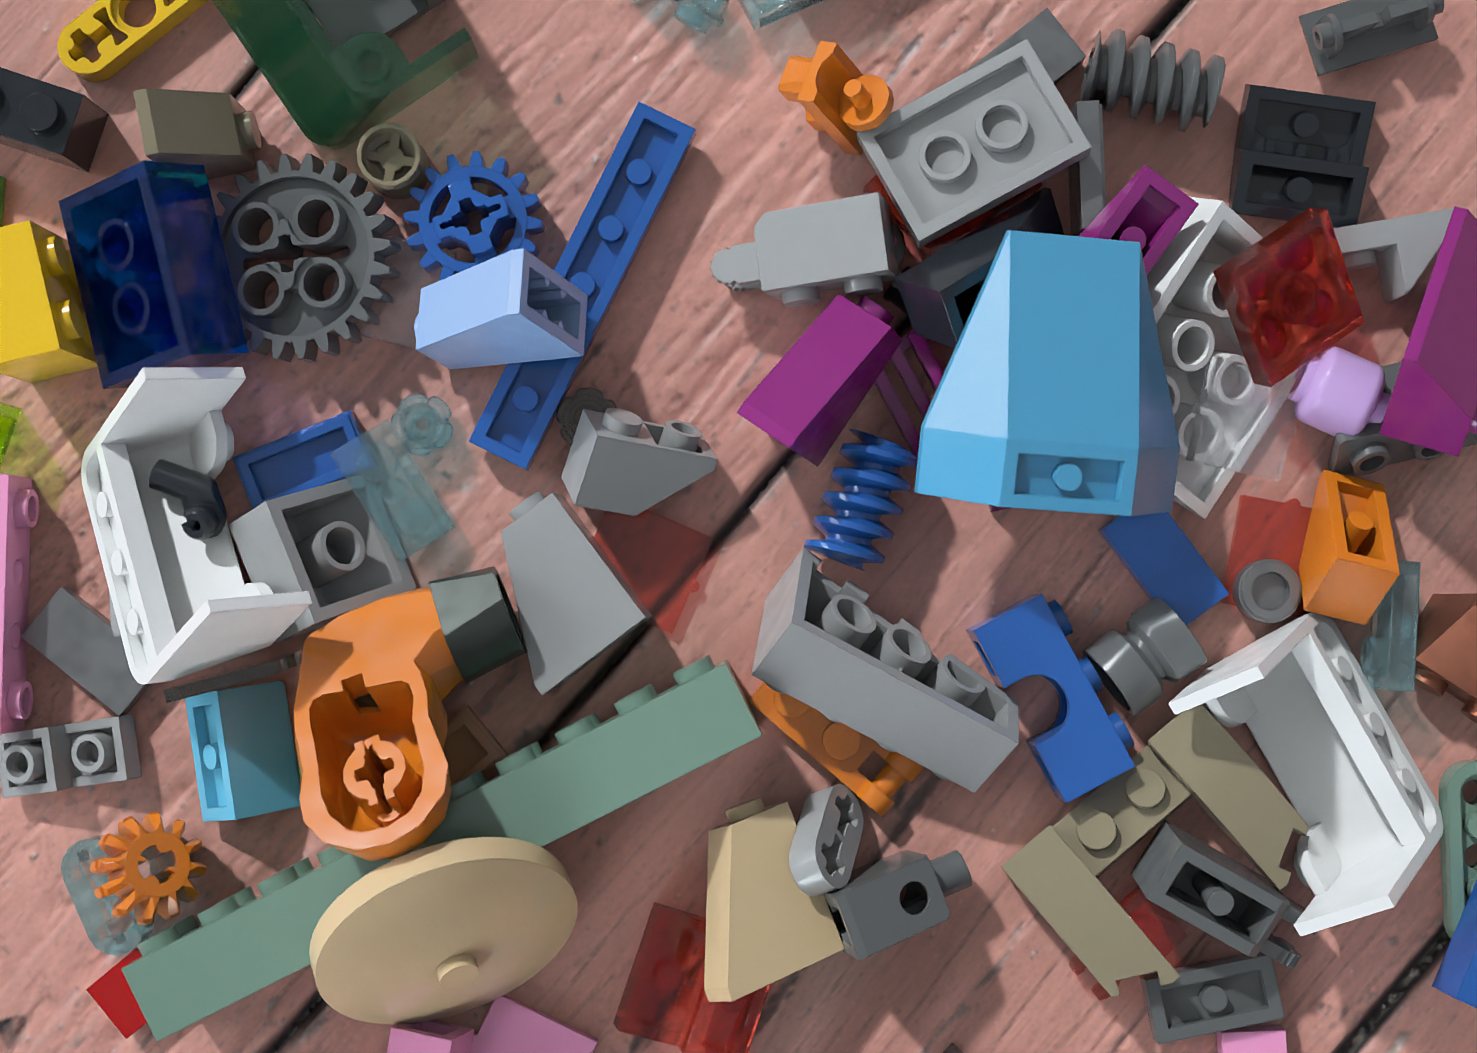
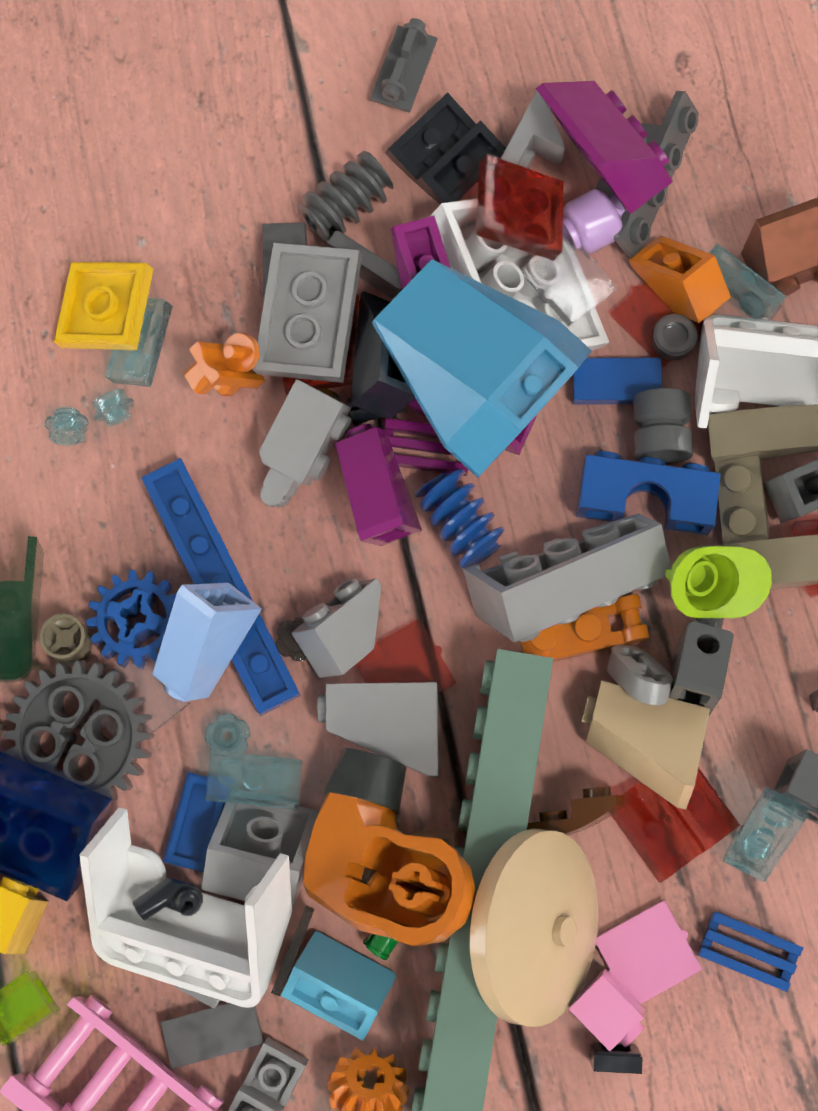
camera: 50 degrees left, 10 degrees down
(624, 890) = (585, 812): none -> reddish brown slope
(999, 856) = (719, 581): none -> lime piece

